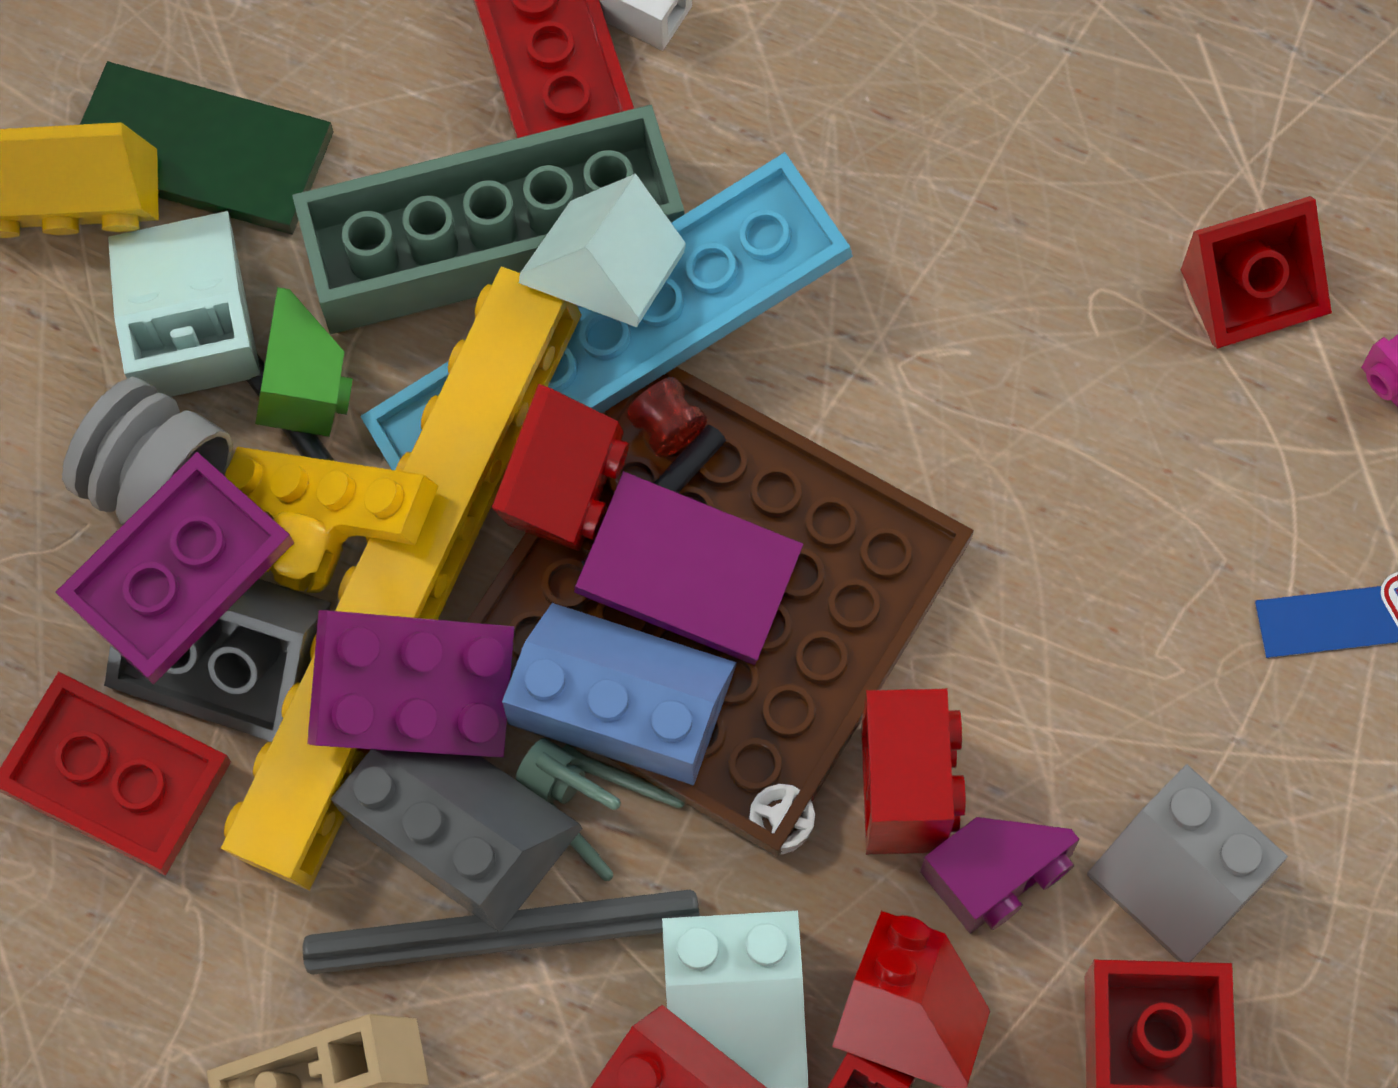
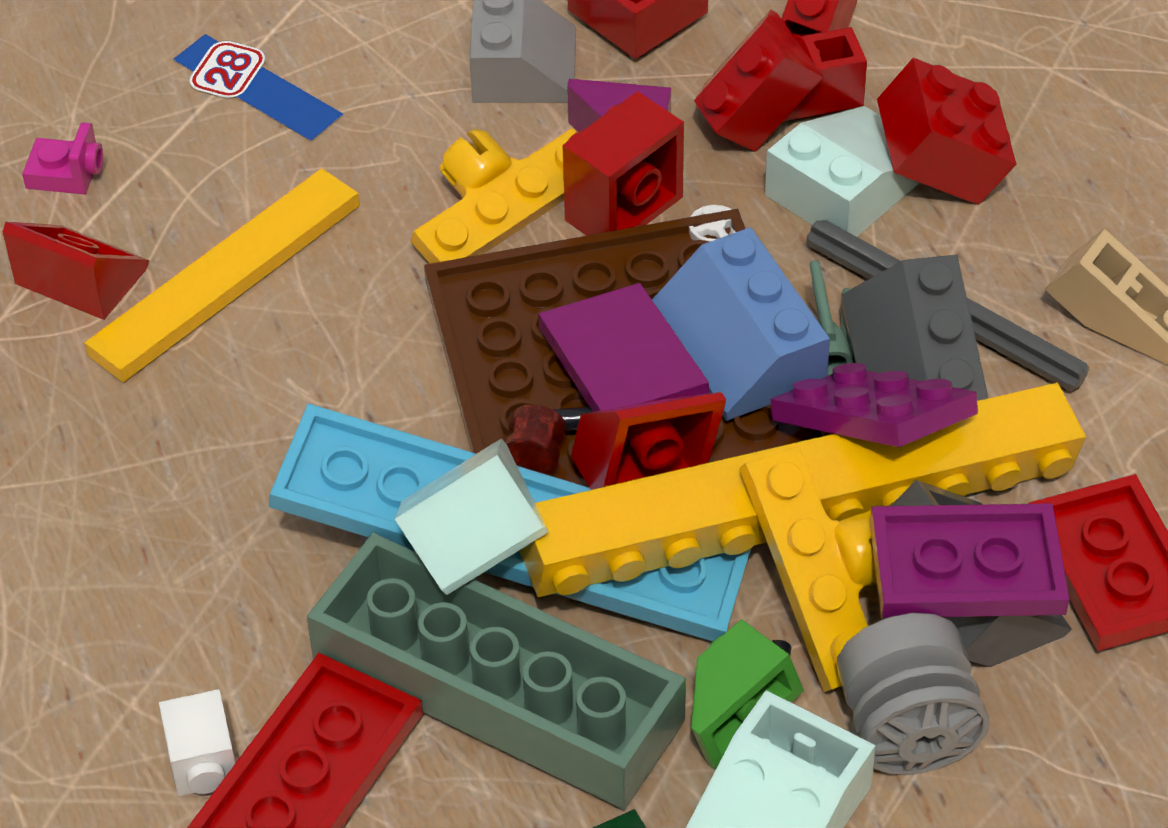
camera: 135 degrees left, 20 degrees down
(1007, 679) = (496, 194): none -> yellow plate
(1139, 394) = (221, 275): none -> yellow tile

